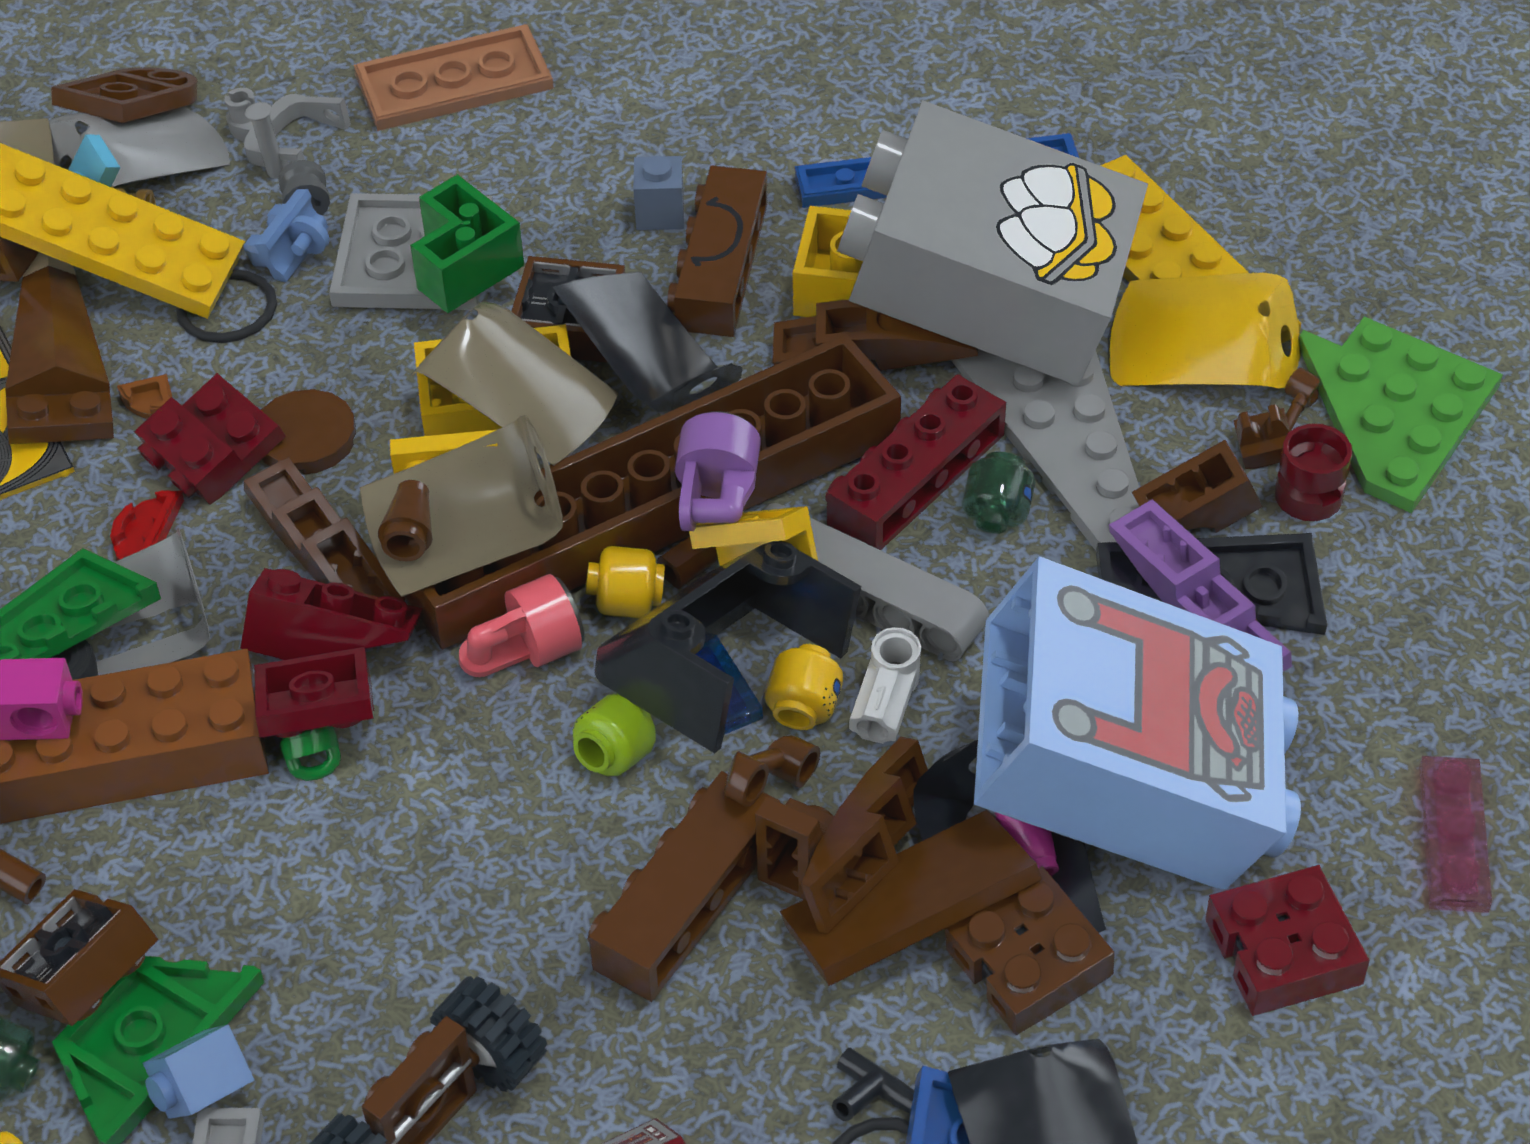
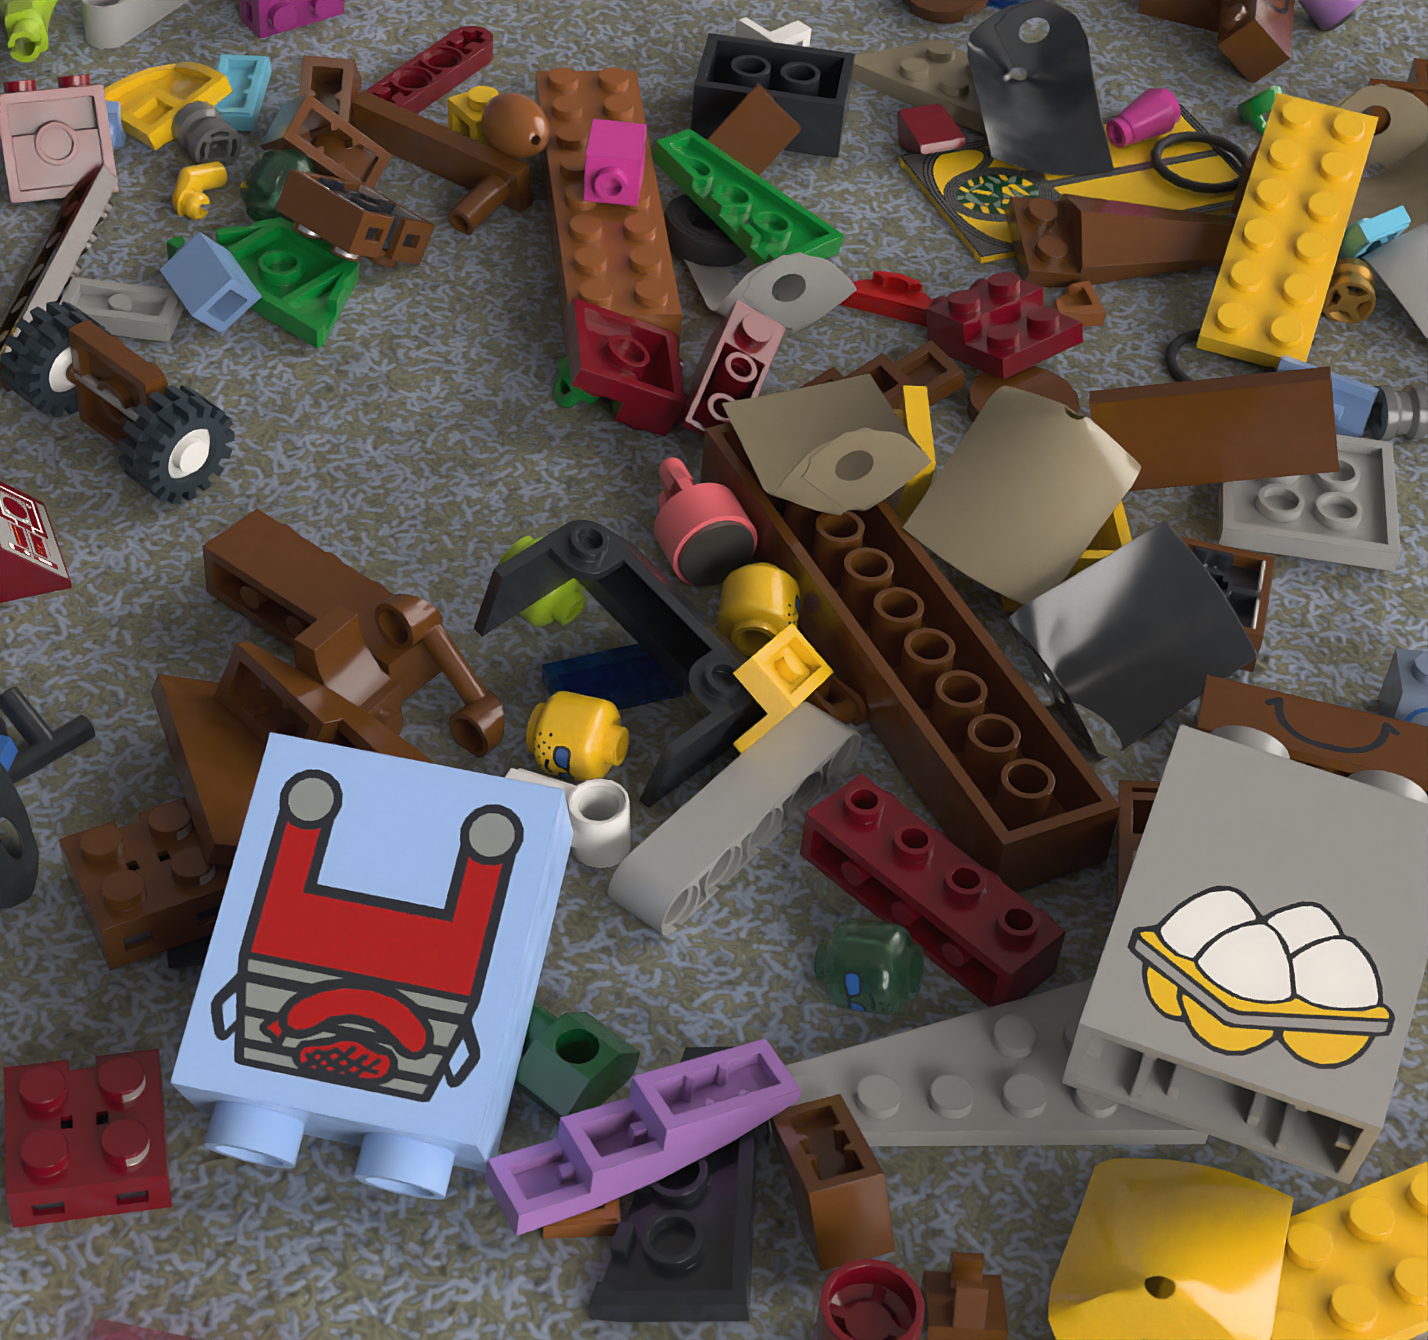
camera: 90 degrees right, 5 degrees down
(398, 281) = (1223, 427): none -> reddish brown tile
(407, 523) = (807, 393): reddish brown cone -> none
(465, 244) = (1272, 495): green brick -> none
(716, 461) = (855, 622): medium lavender piece -> none

